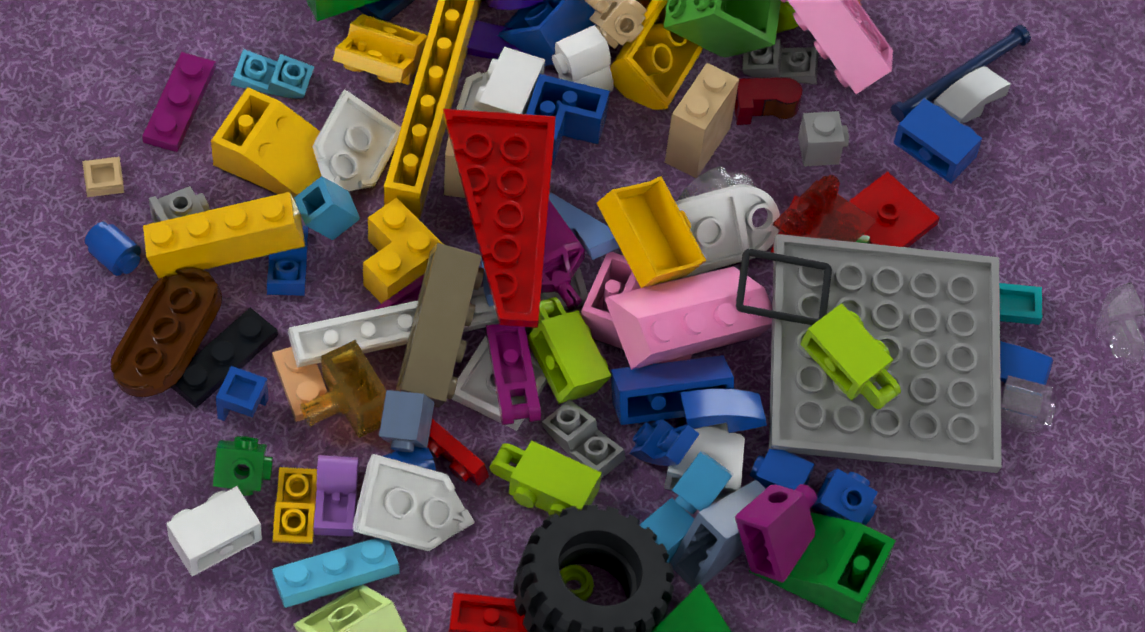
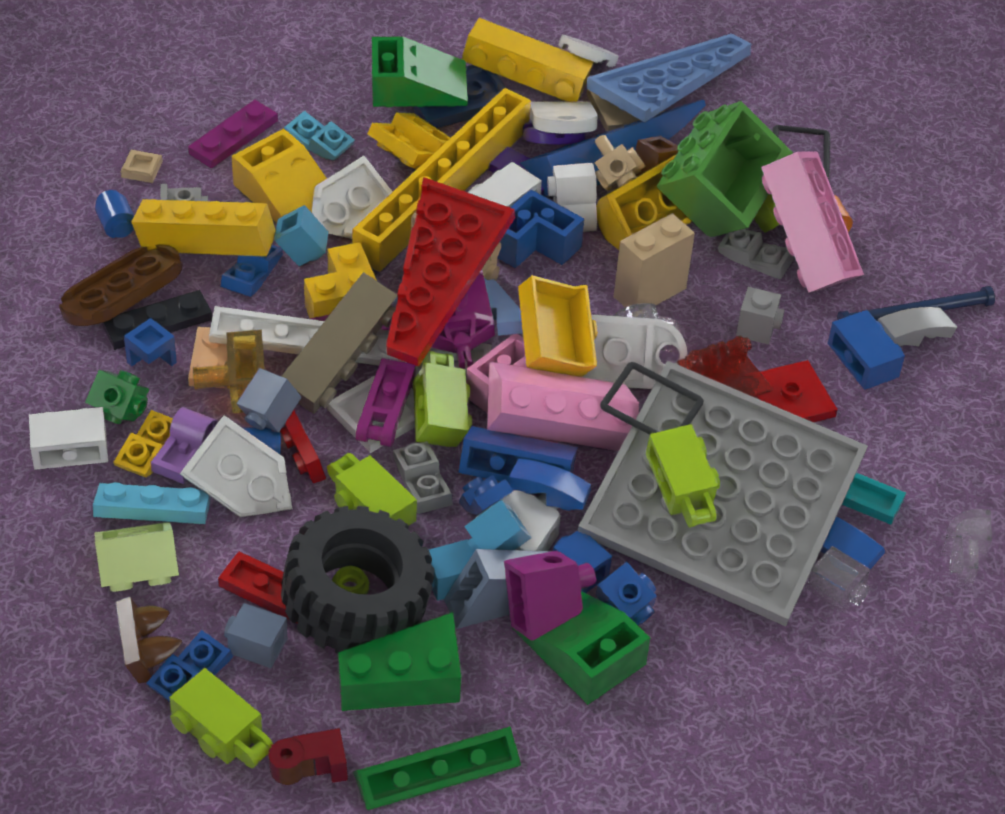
camera: 25 degrees right, 10 degrees down
(766, 97) = (725, 272): dark red leg -> none

